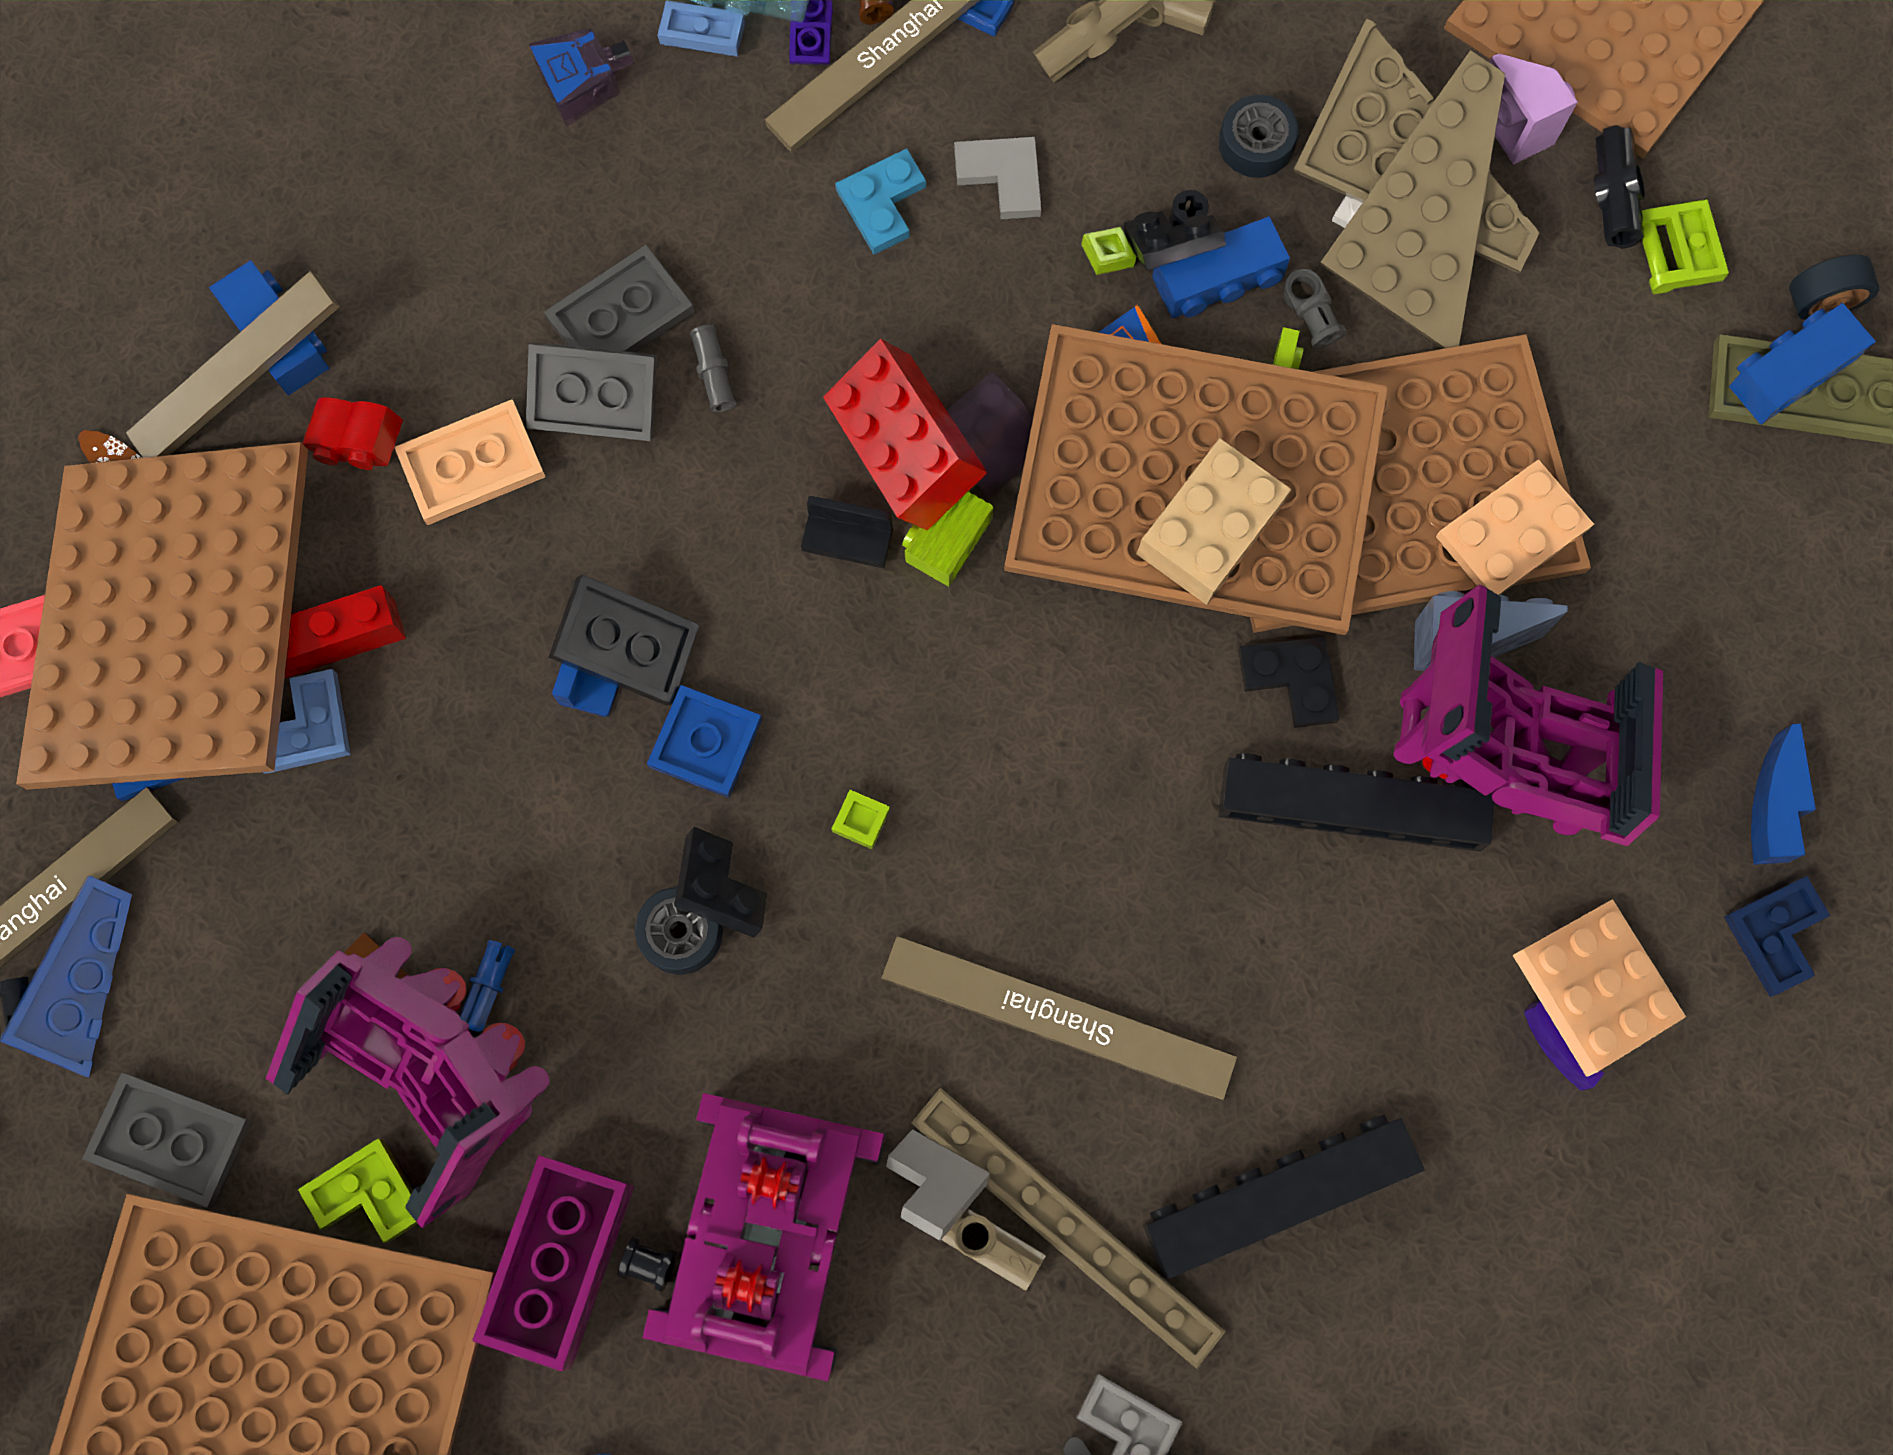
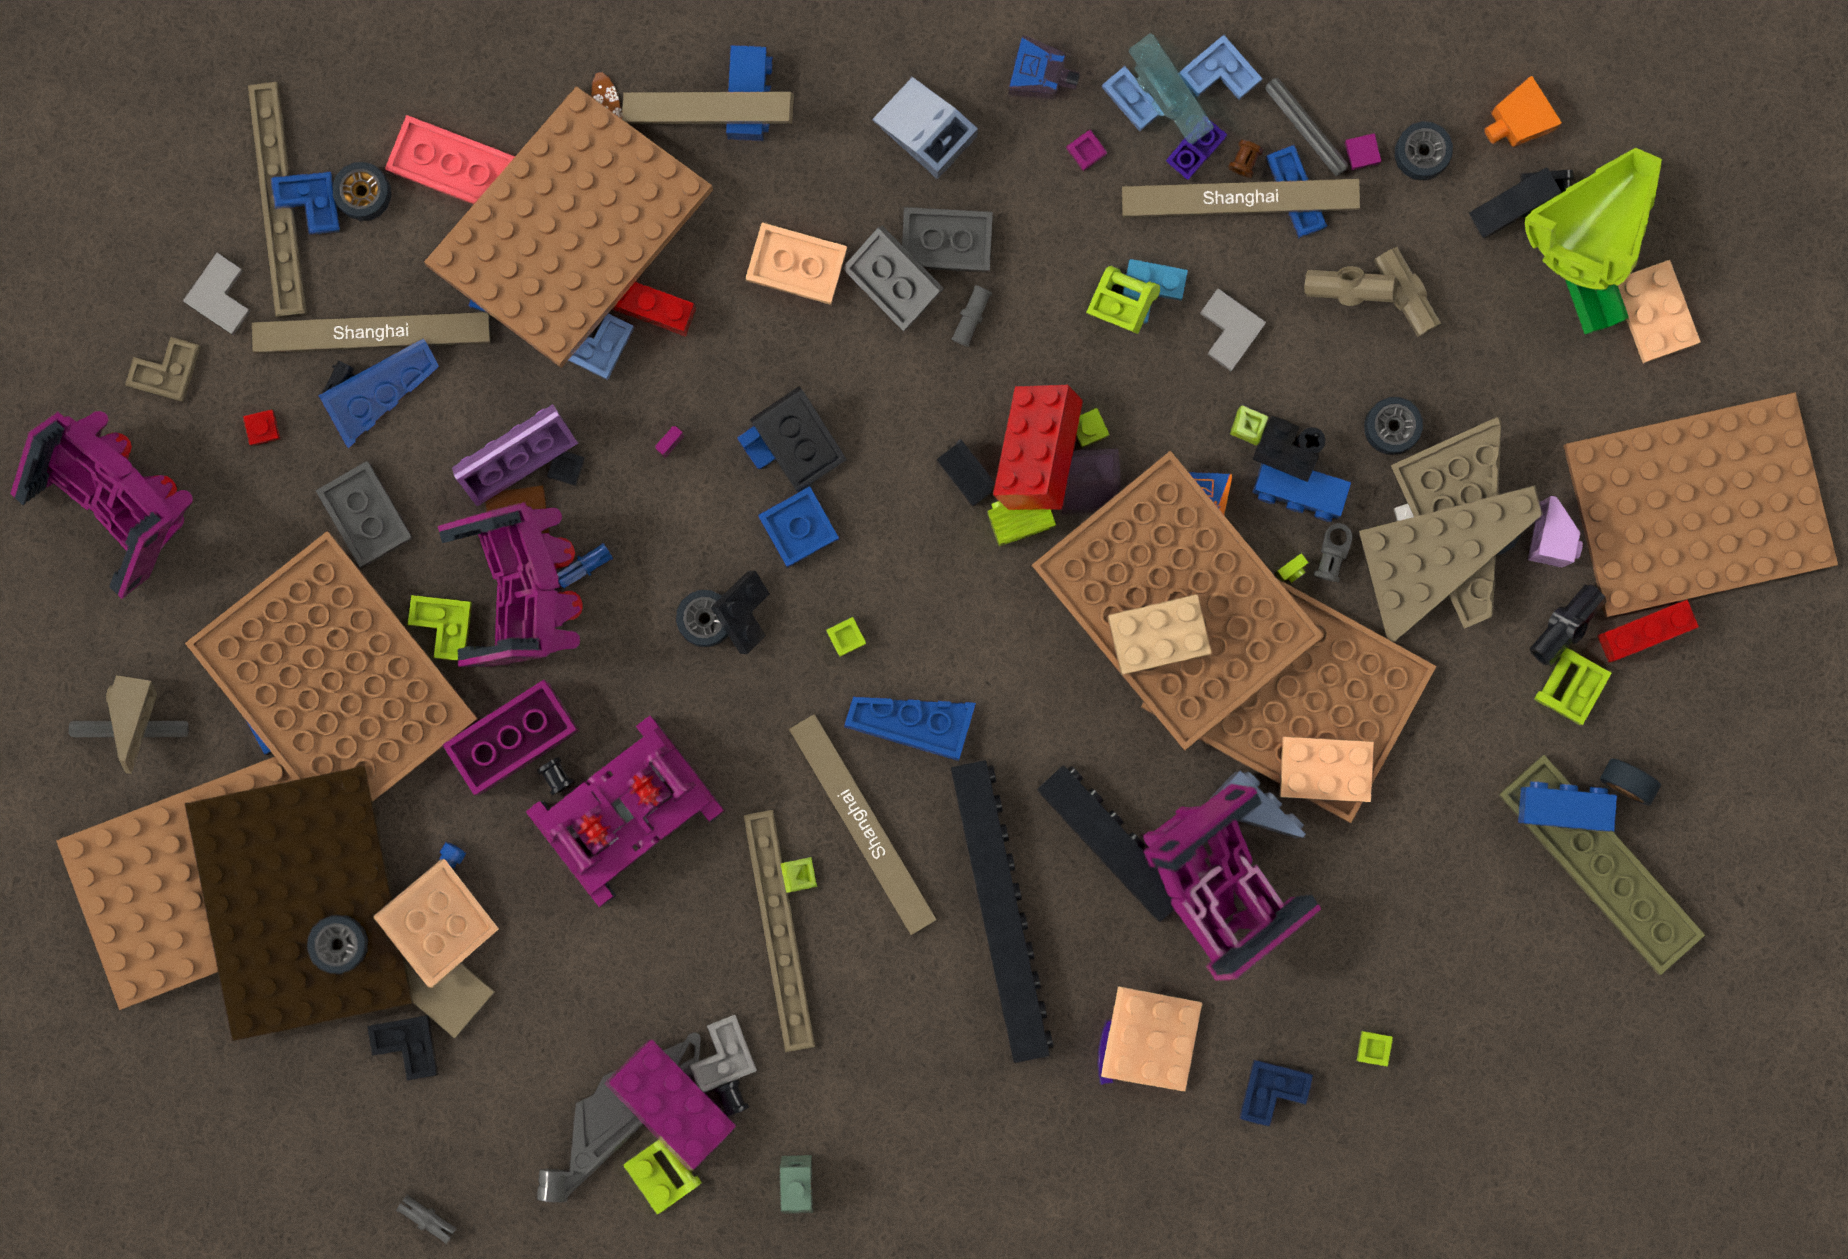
camera: 35 degrees right, 10 degrees up
(300, 918) = (514, 455): none -> medium lavender slope
(352, 433) = (745, 196): red brick -> none
(377, 890) = (566, 468): none -> black tile
(476, 763) = (669, 441): none -> magenta tile
(503, 213) = (926, 127): none -> slope
(696, 115) = (1086, 150): none -> magenta tile
(868, 234) = (1118, 308): none -> lime plate
(945, 381) = (1091, 428): none -> lime plate
(945, 1183) = (736, 858): light grey tile -> none
(1002, 1254) = (722, 879): dark tan piece -> none
(1030, 848) = (918, 724): none -> blue wing
(1034, 1139) = (798, 875): none -> lime tile
(1282, 1197) = (899, 1007): black brick -> none
(1300, 667) = (1148, 748): black plate -> none
(1305, 988) = (1000, 911): none -> black brick
(1703, 130) = (1648, 631): none -> red brick
(1780, 799) = (1338, 1026): blue slope -> none
(1841, 791) = (1374, 1048): none -> lime plate

